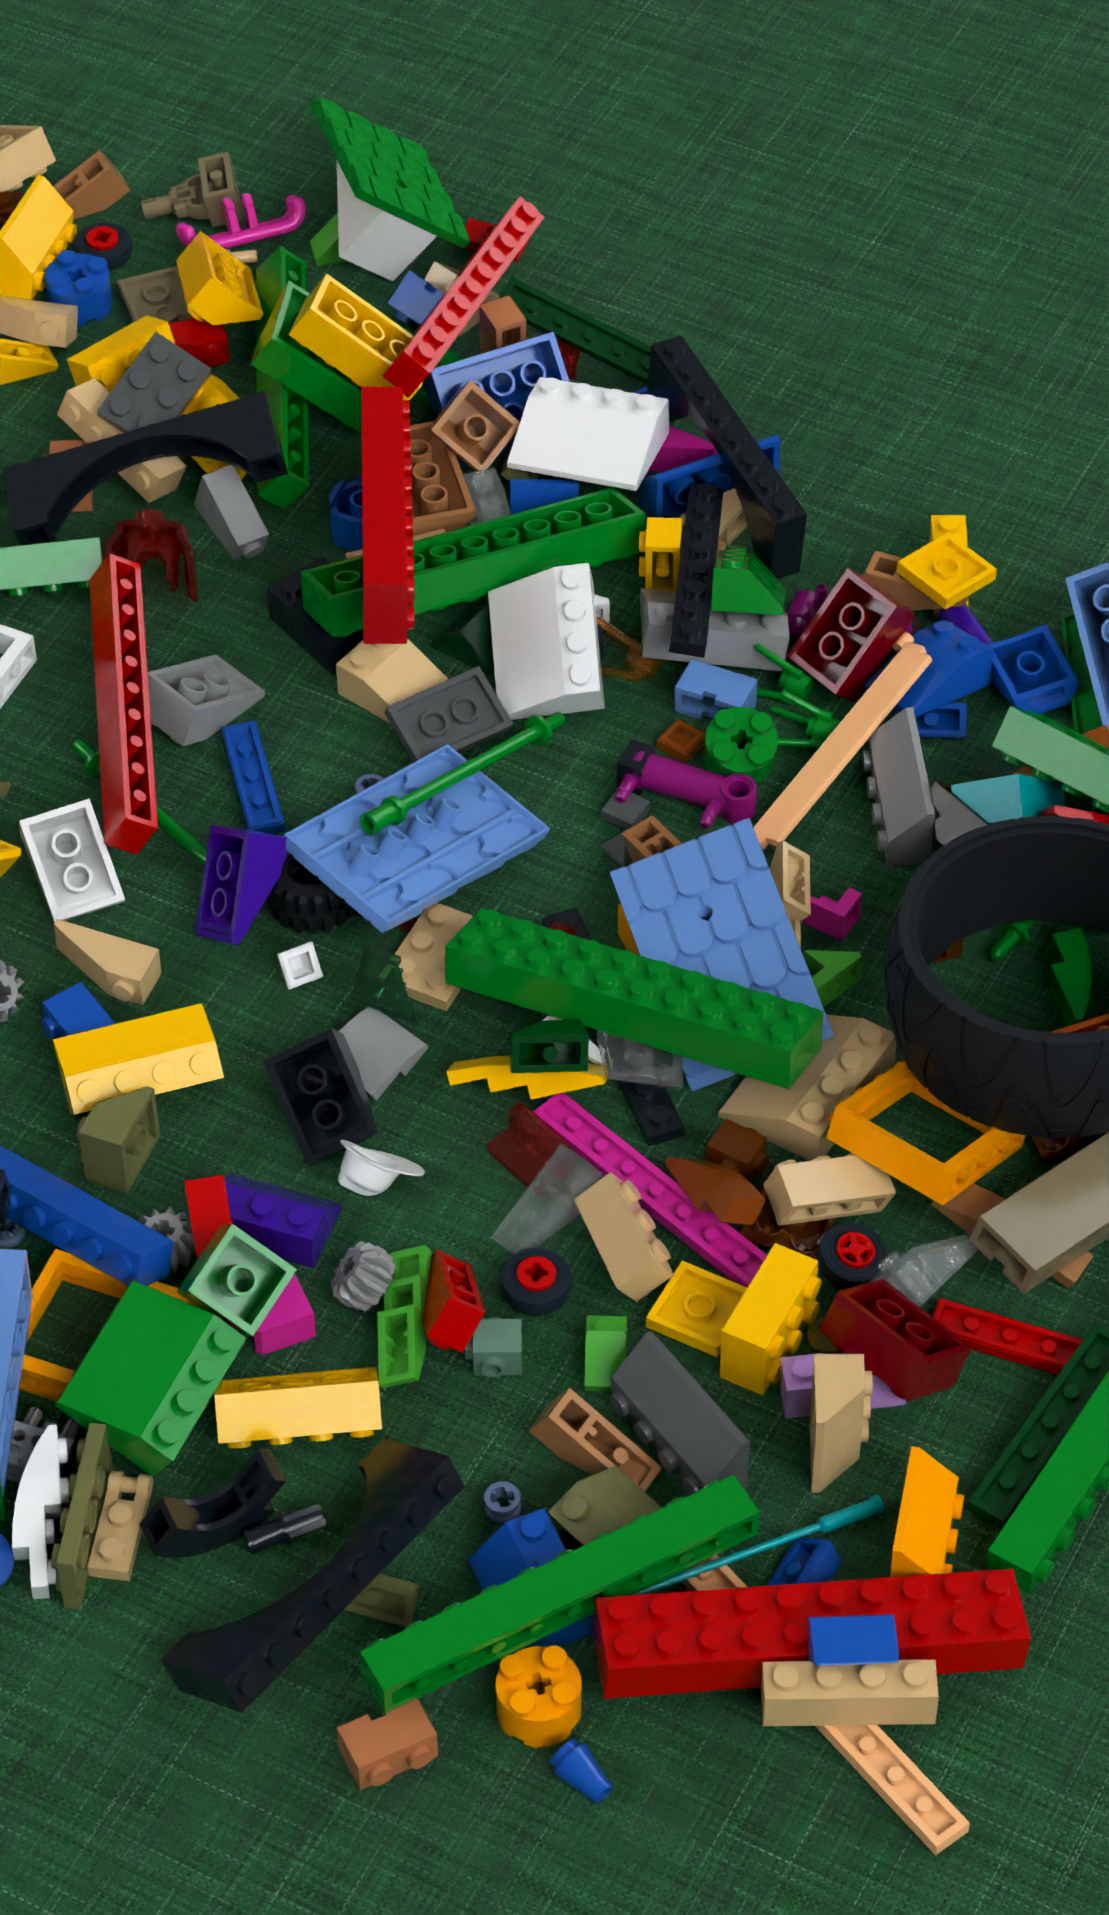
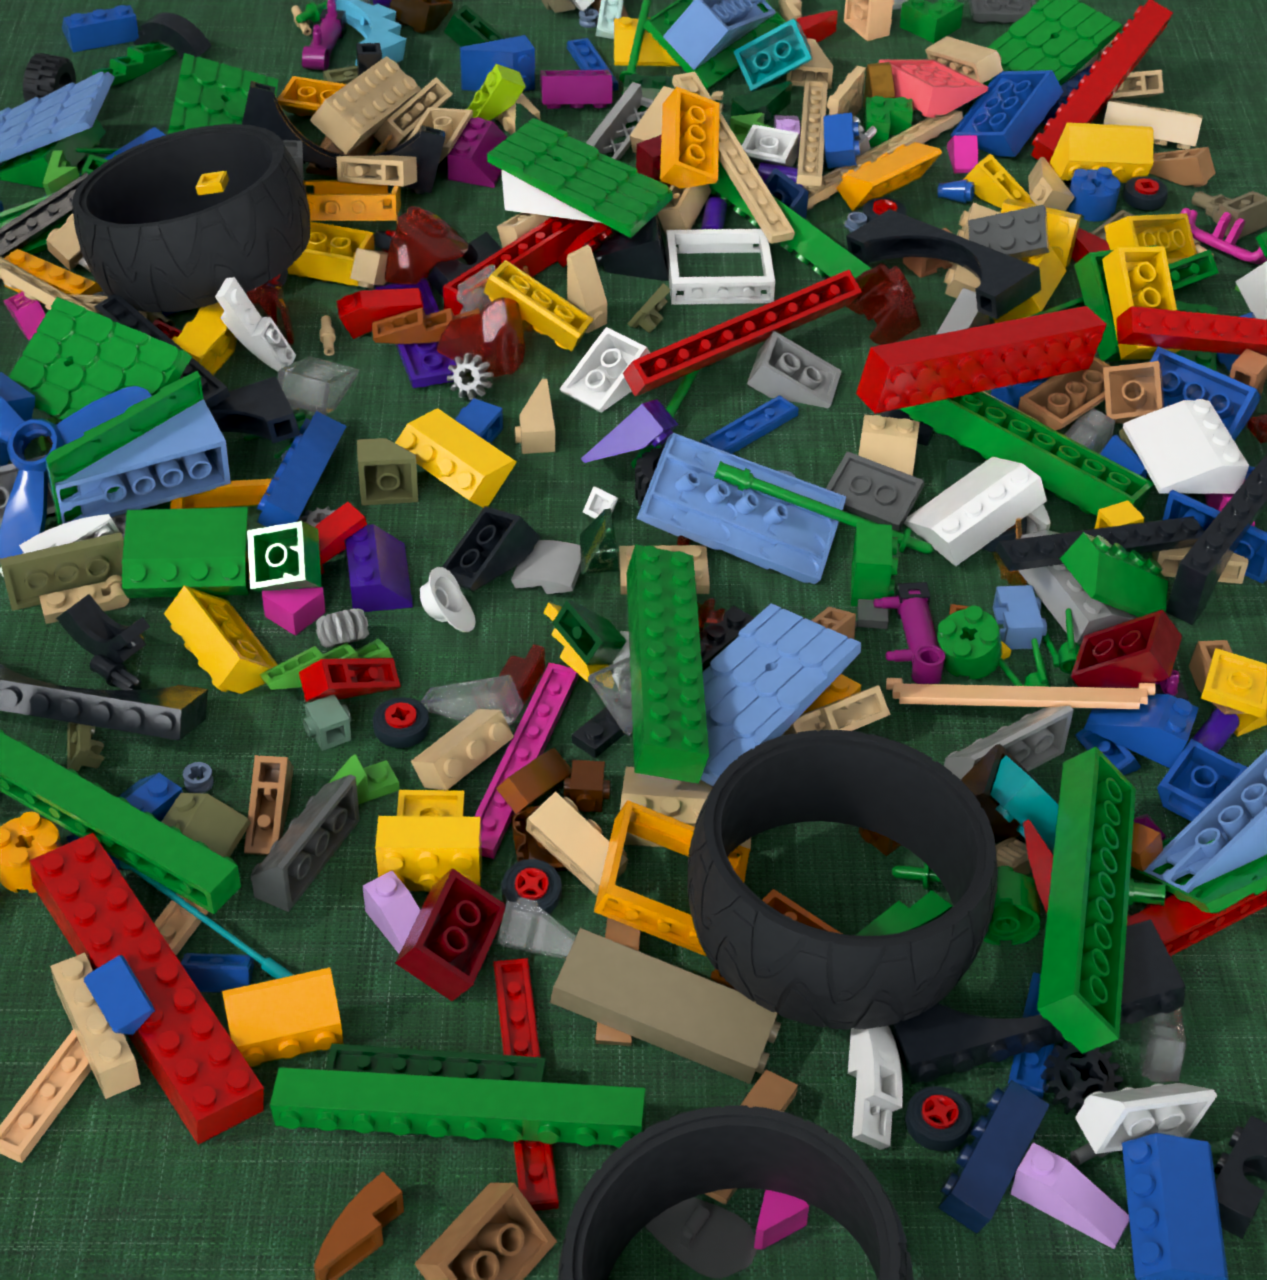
camera: 60 degrees right, 5 degrees down
(575, 770) = (873, 562): none -> green brick
(837, 1415) = (341, 918): tan slope -> none

